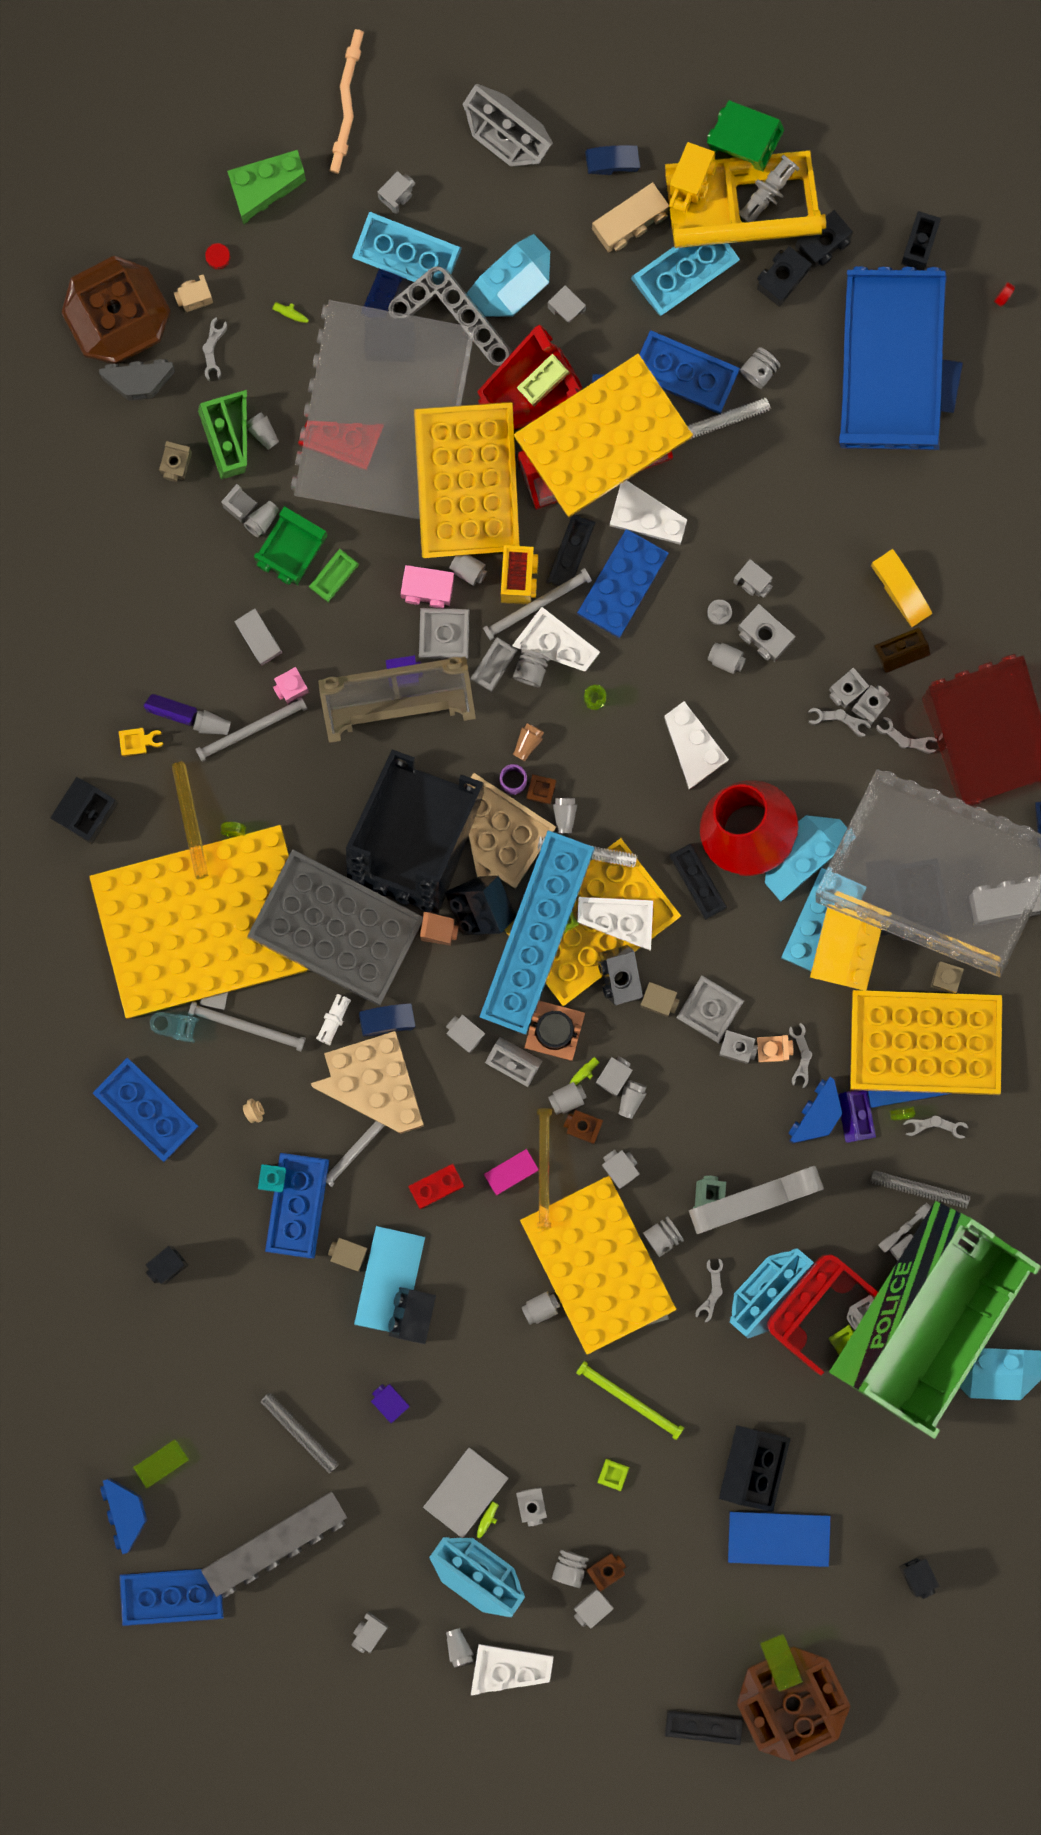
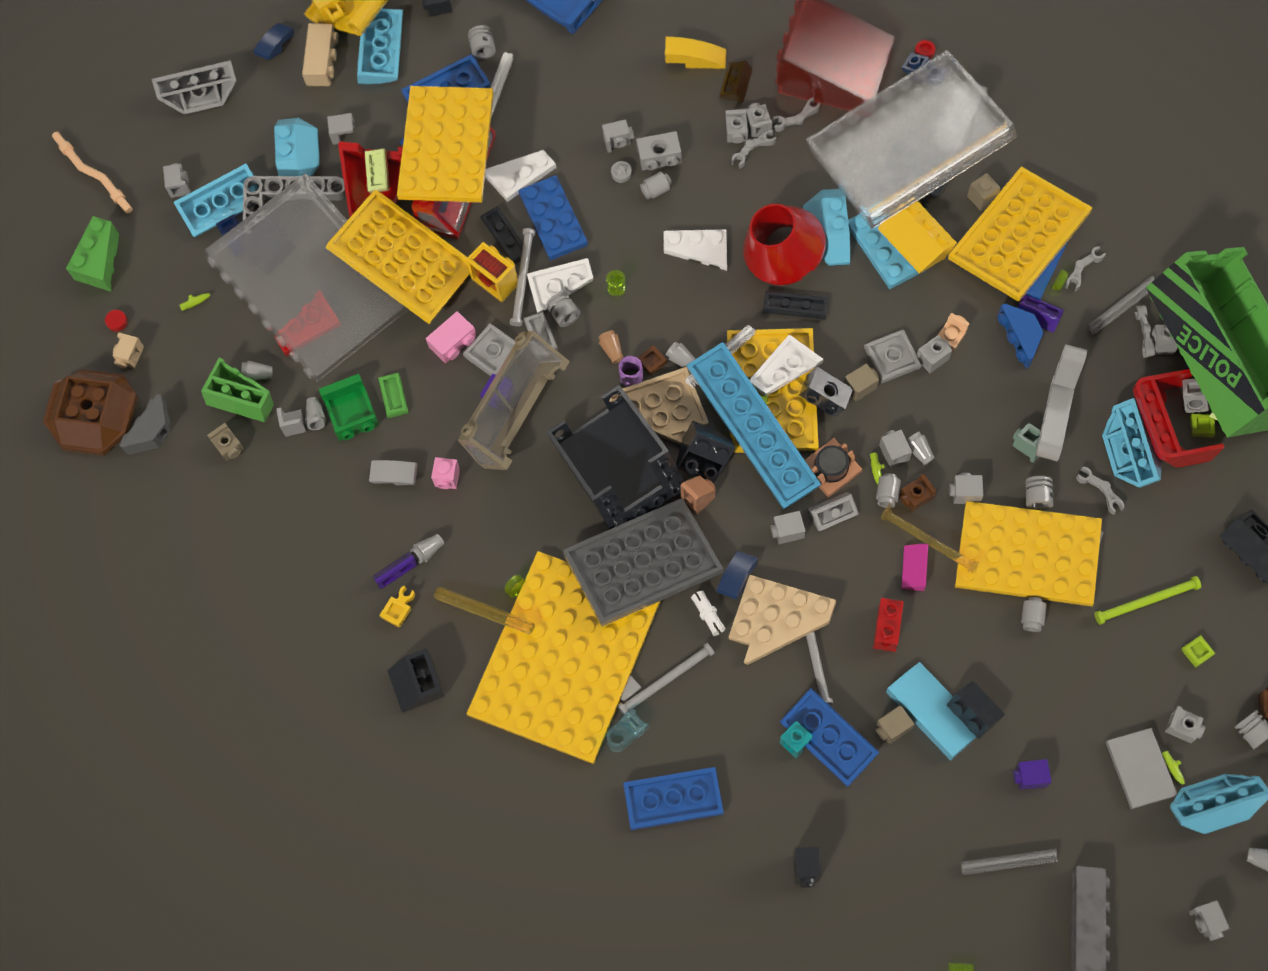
camera: 50 degrees left, 15 degrees down
(208, 348) = (165, 358): light grey piece -> none
(251, 729) = (452, 528): light grey bar -> none
(253, 1111) = (733, 718): tan plate -> none
(468, 569) = (462, 303): light grey brick -> none
(806, 1055) = (971, 316): light grey piece -> none

